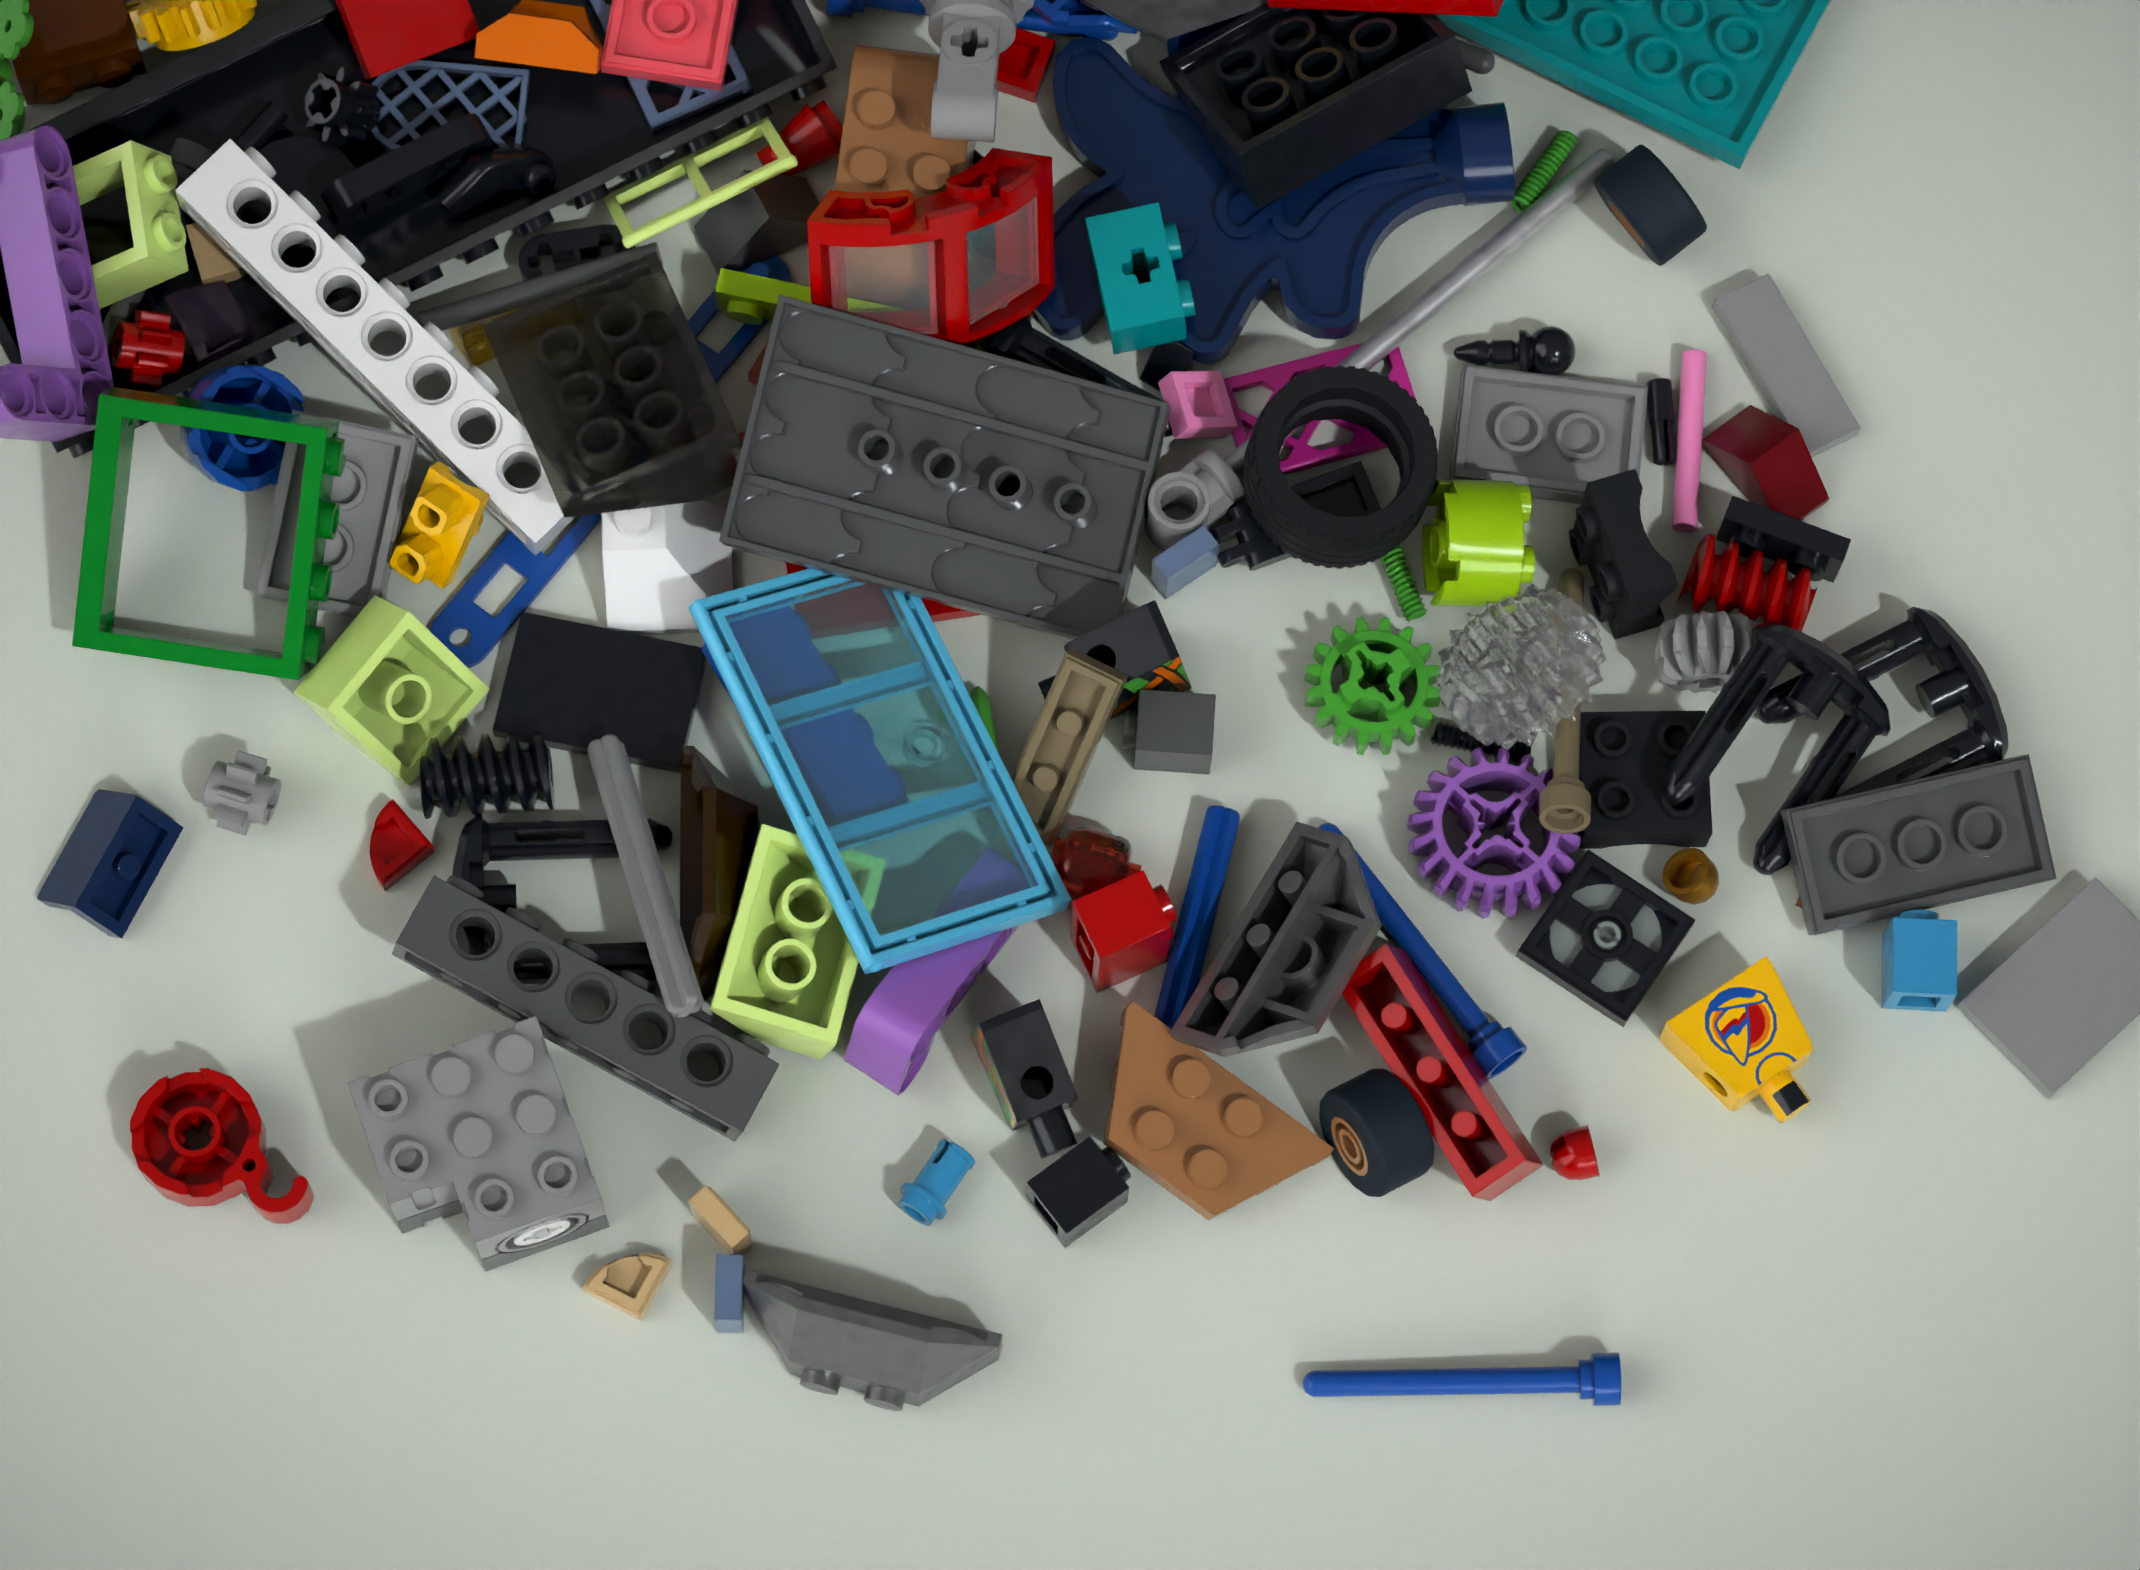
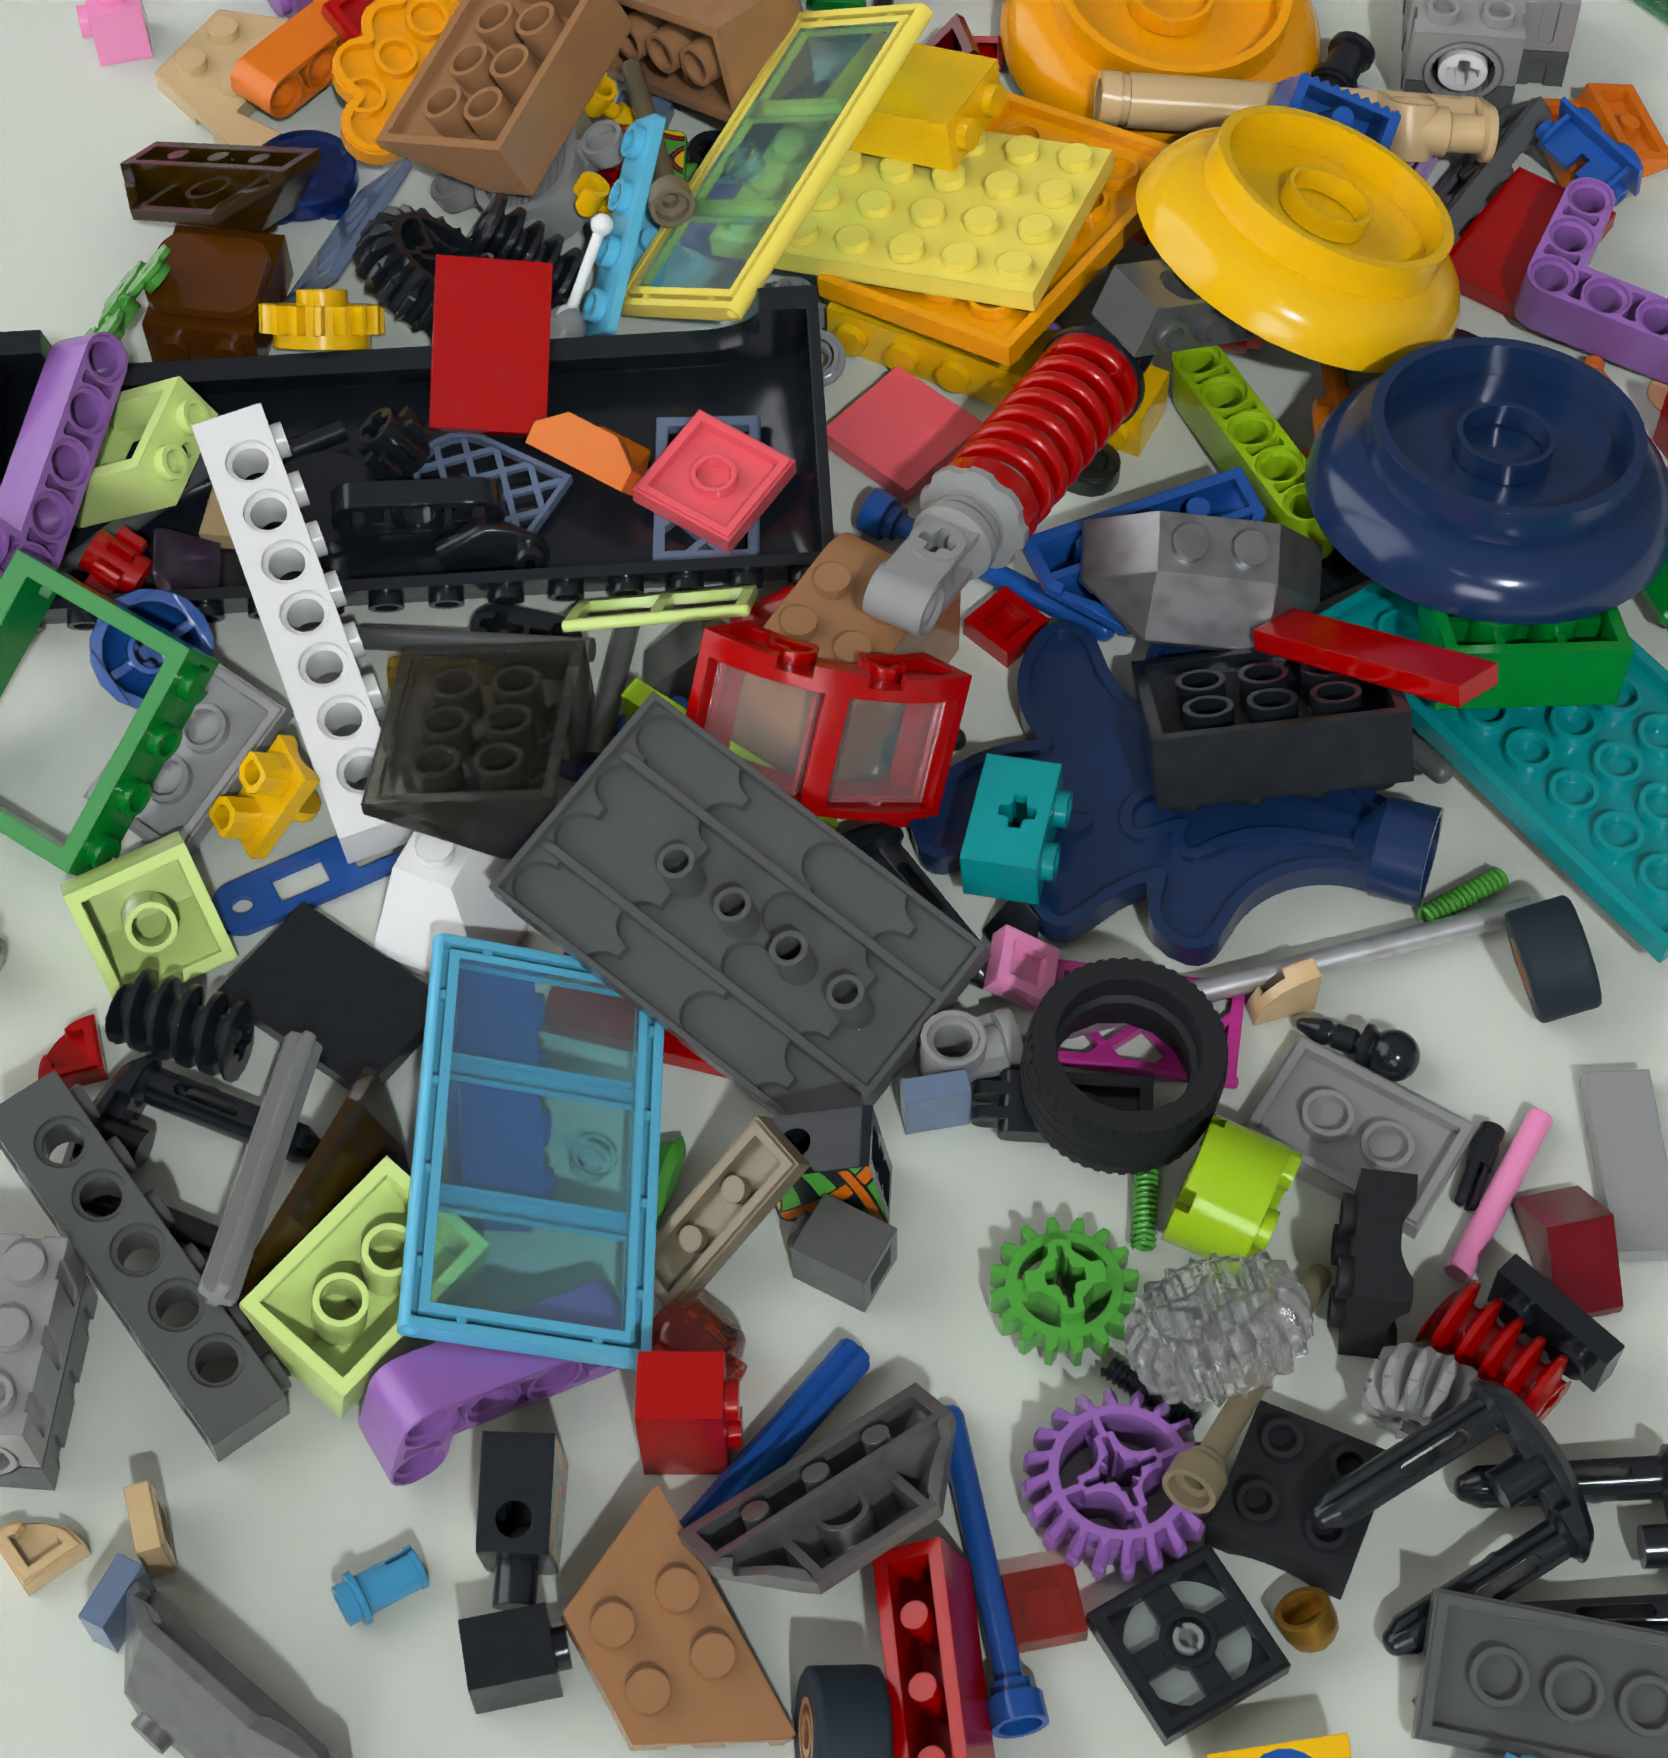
camera: 30 degrees right, 15 degrees down
(686, 279) = (610, 690): none -> dark grey bar
(1446, 323) = (1288, 997): none -> tan tile
(1479, 957) = (1045, 1607): none -> clear red tile

